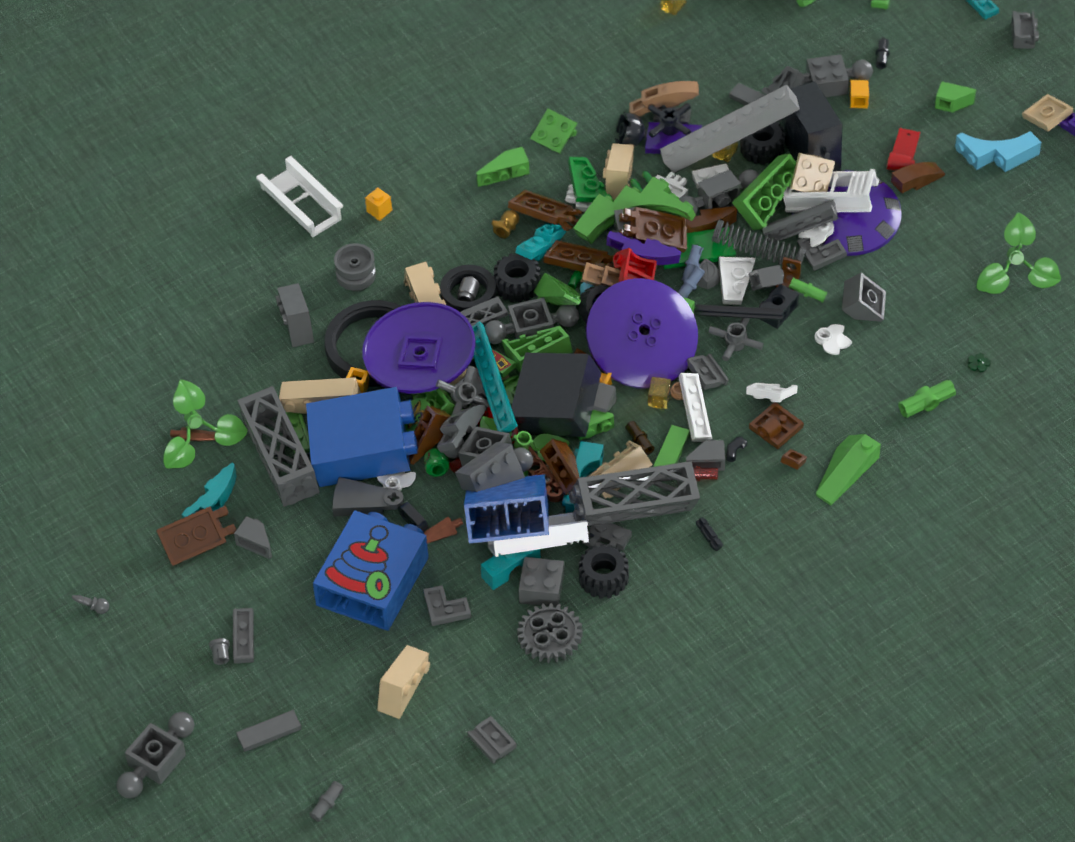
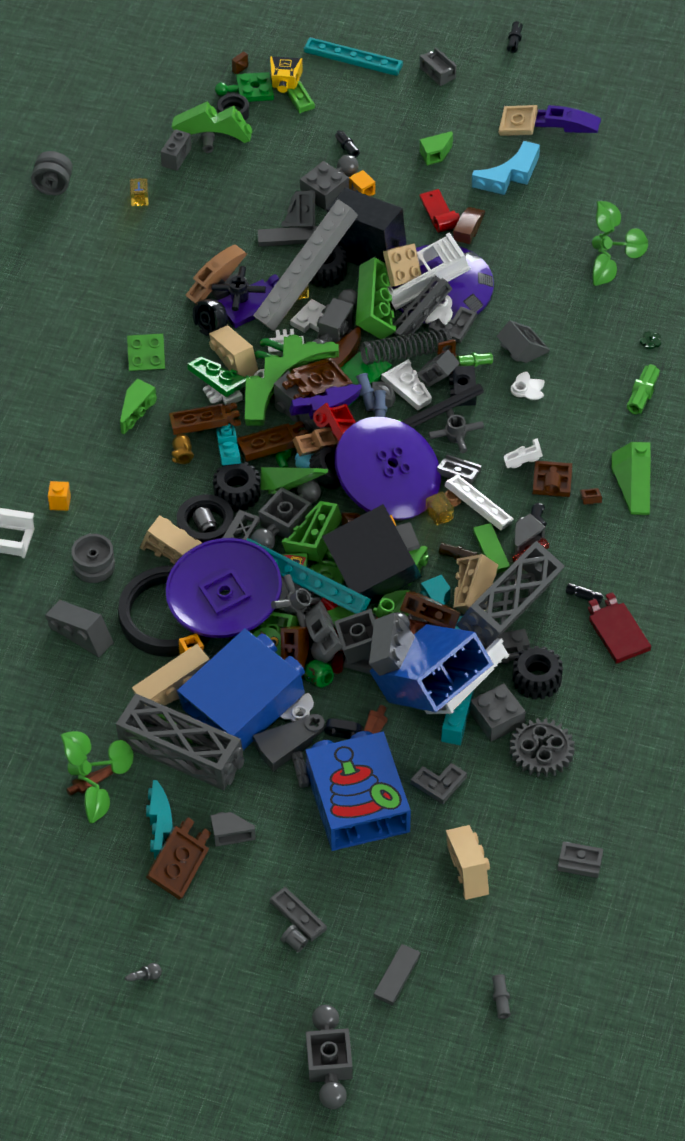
camera: 40 degrees left, 0 degrees up
(707, 580) = (617, 629): none -> dark red tile

